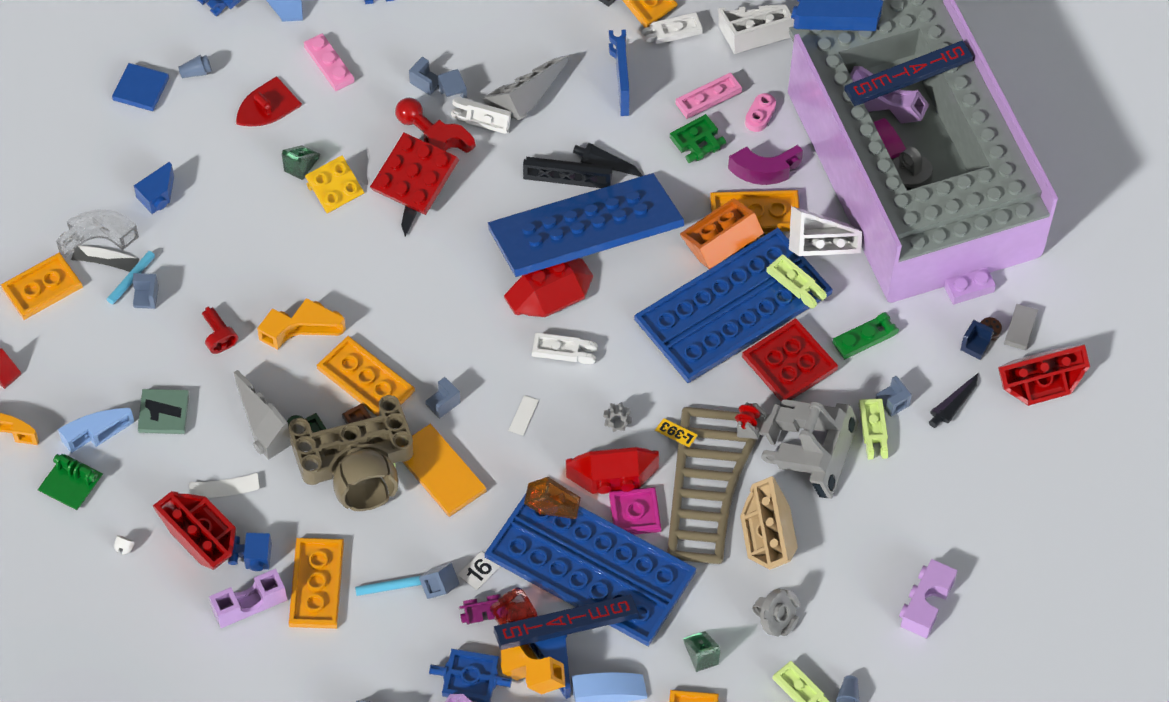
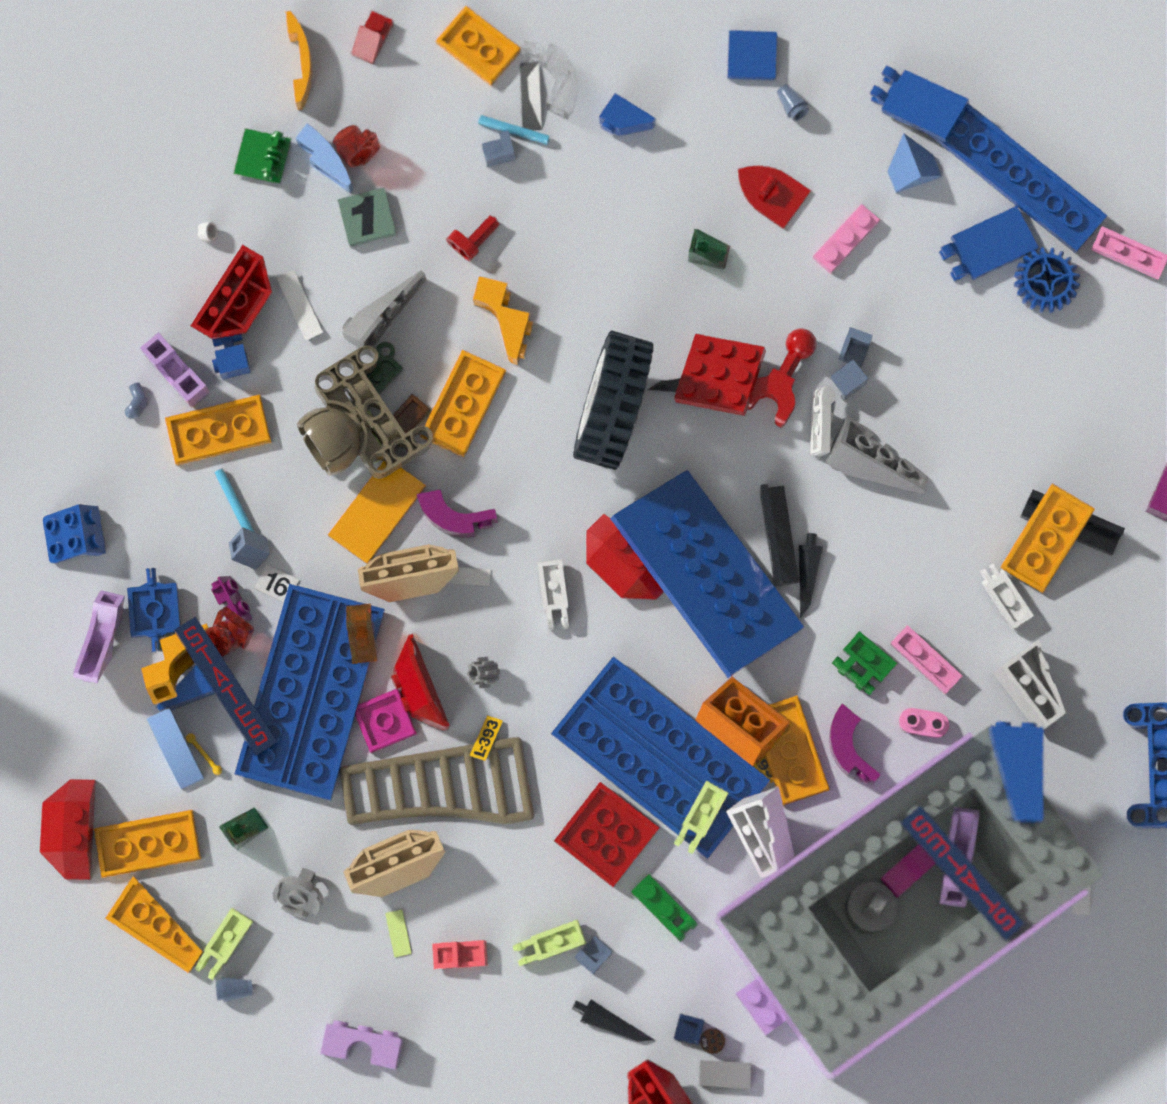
camera: 80 degrees right, 20 degrees up
(94, 398) = (354, 145): none -> clear red piece
(263, 642) = (138, 402): none -> sand blue arm
(334, 184) = (686, 296): yellow hinge -> none
(415, 238) = (613, 400): none -> black wheel
(445, 399) = (458, 489): sand blue panel -> none
(467, 414) = (450, 521): none -> magenta arch
(507, 449) = (408, 572): none -> tan wedge
(622, 71) = (921, 555): blue tile -> none
(637, 661) = (191, 738): none -> yellow hinge
(822, 461) = (532, 904): light grey container -> none
(831, 549) = (398, 933): none -> yellowish green sticker
(865, 501) = (460, 954): none -> coral slope

